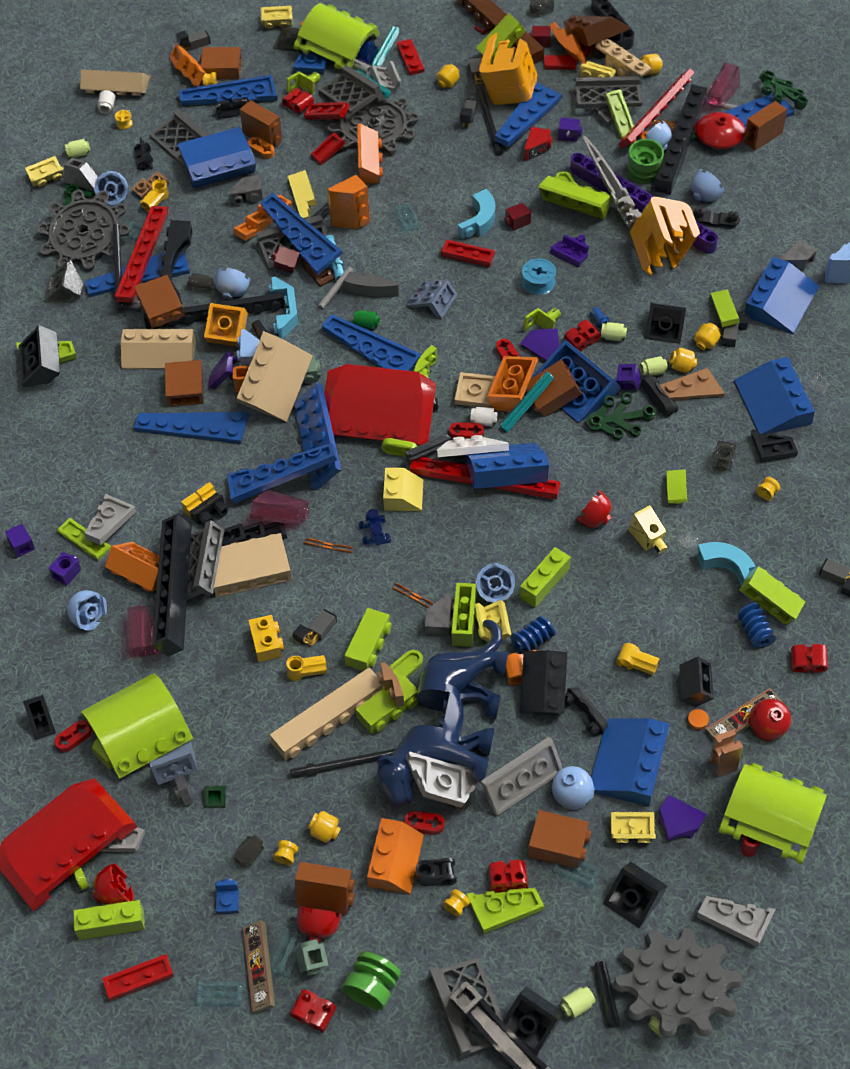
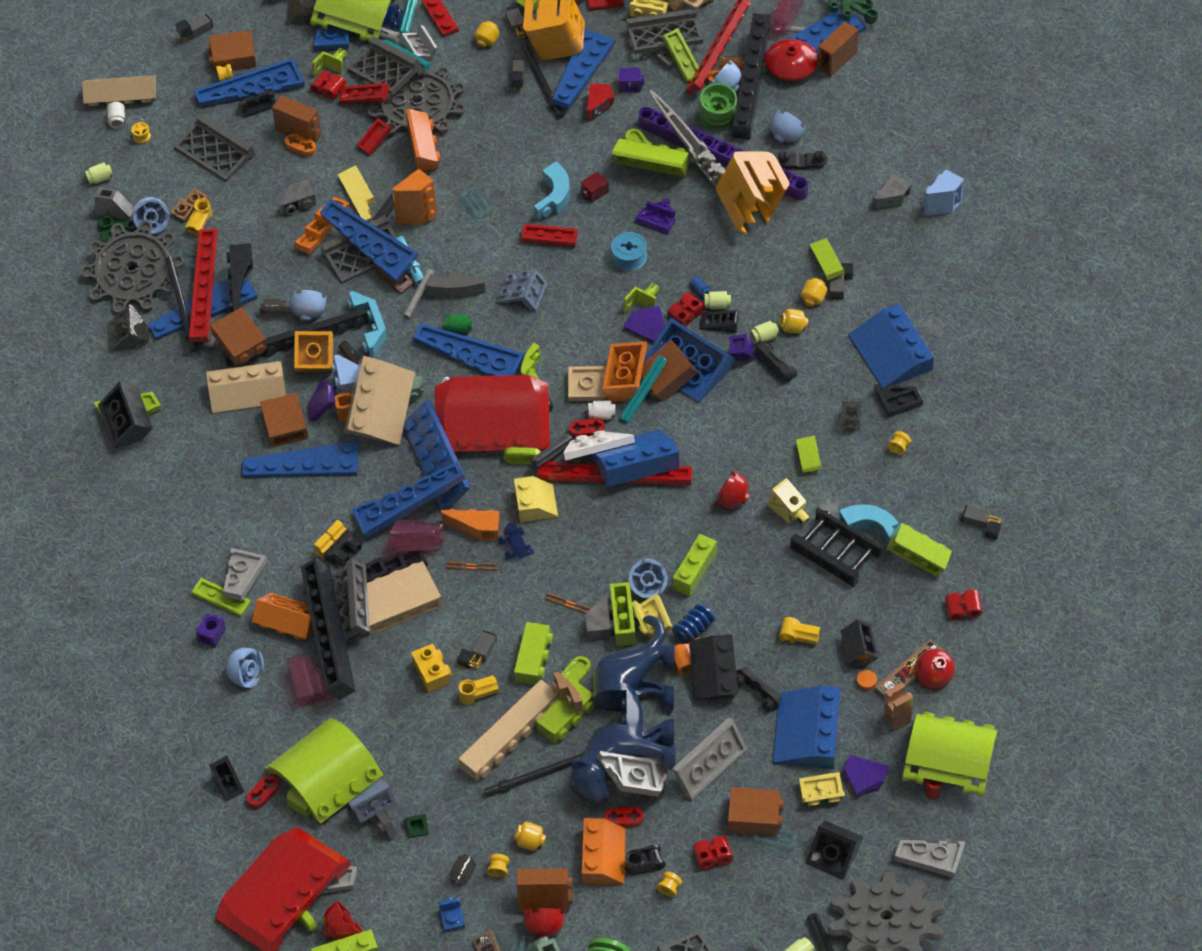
camera: 10 degrees left, 0 degrees up
(19, 540) = (156, 608): dark purple brick -> none
(44, 171) = (69, 205): light yellow bracket -> none
(143, 155) = (170, 166): black hinge -> none
(187, 64) = (195, 58): orange slope -> none
(217, 157) = (257, 163): blue slope -> none
(285, 259) = (359, 270): brick -> none
(341, 505) = (478, 524): none -> orange slope
(503, 908) = (714, 882): lime wing -> none
(511, 351) = (615, 335): red beam -> none
(572, 788) = (758, 762): light blue cylinder -> none
(618, 356) = (720, 326): none -> black slope
(618, 417) = (738, 391): dark green plant -> none
(665, 322) = (769, 283): black slope -> none
(682, 596) = (834, 563): none -> black fence
(695, 385) = (807, 347): medium nougat wing -> none
(755, 625) = (908, 581): blue piece -> none
(781, 296) = (882, 237): slope -> none

